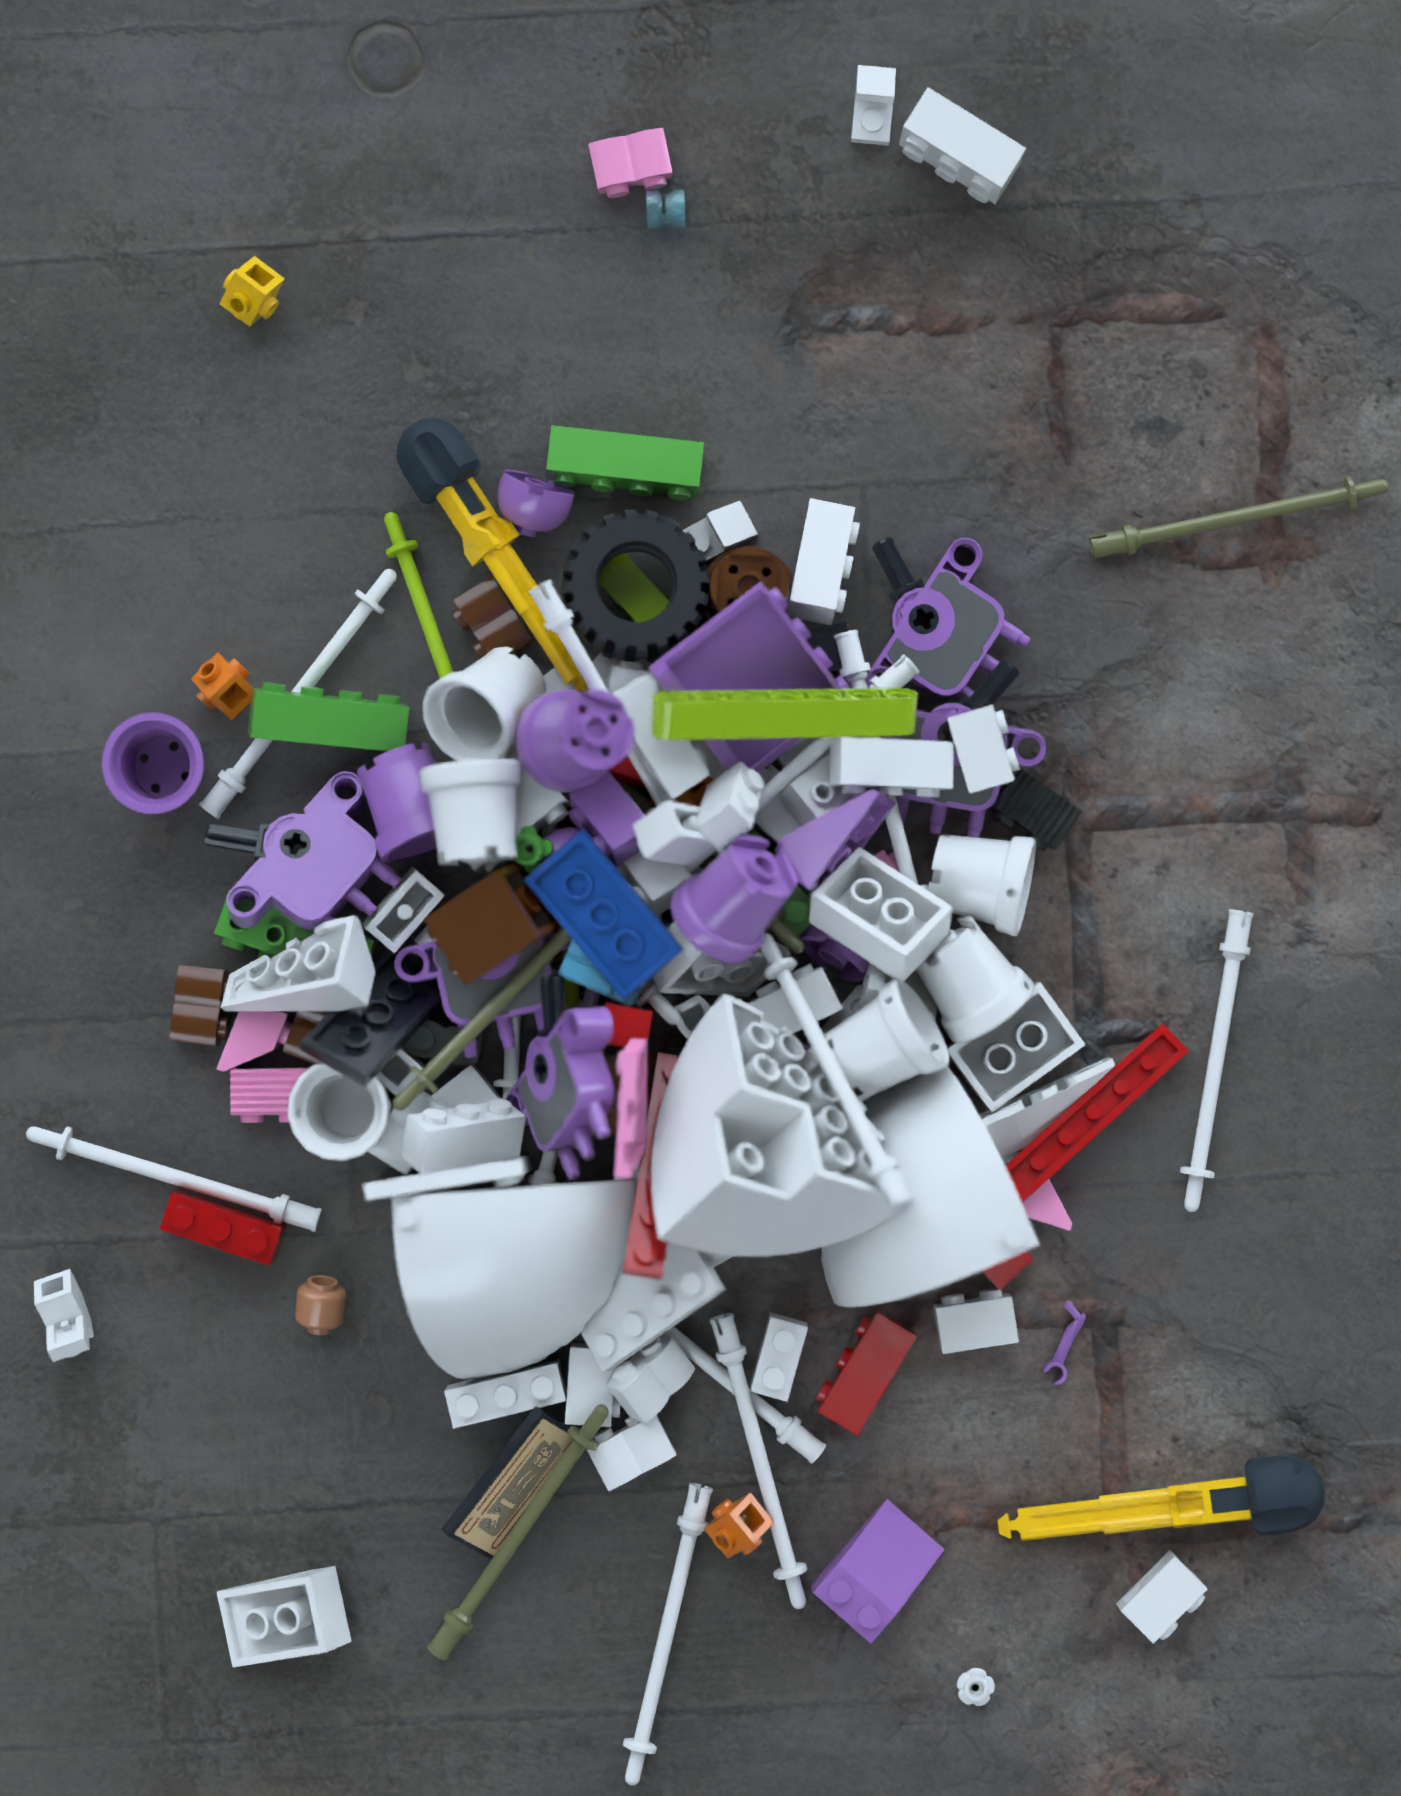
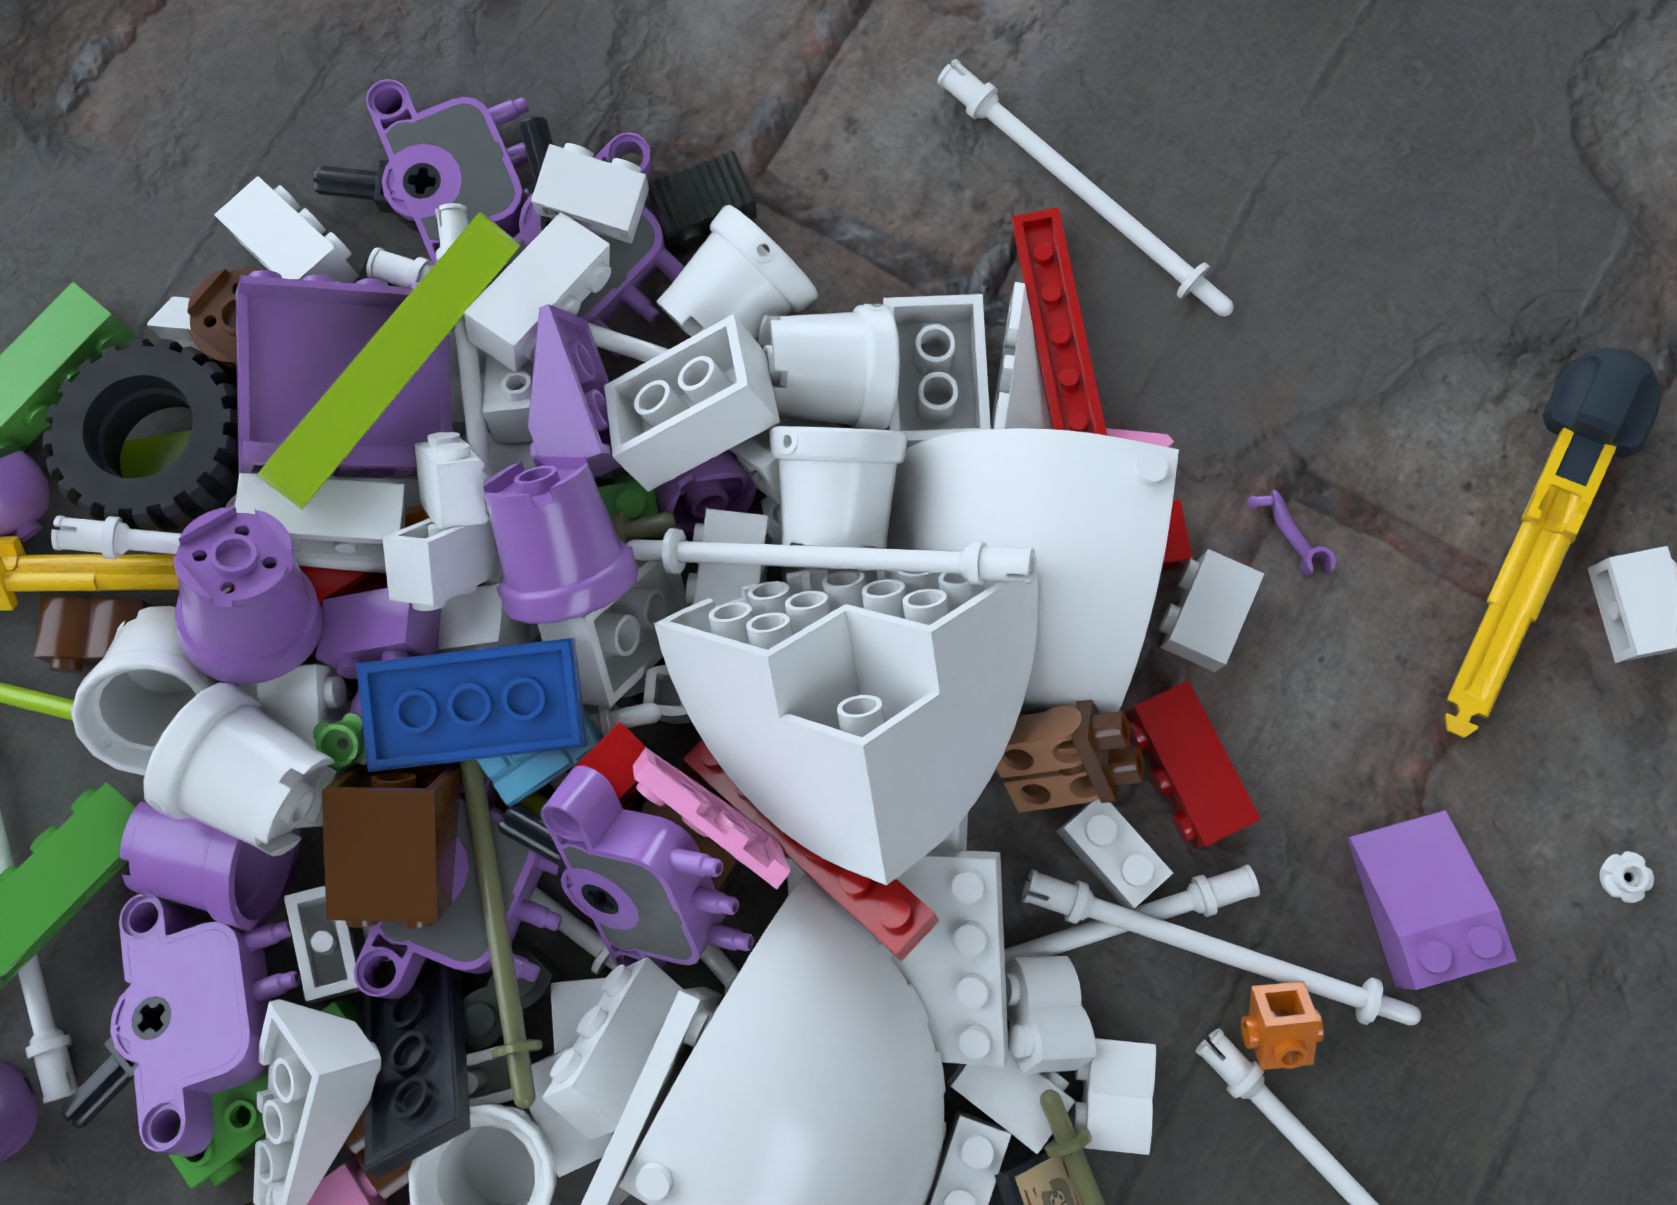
camera: 55 degrees left, 10 degrees down
(815, 1294) = (1069, 757): none -> hips

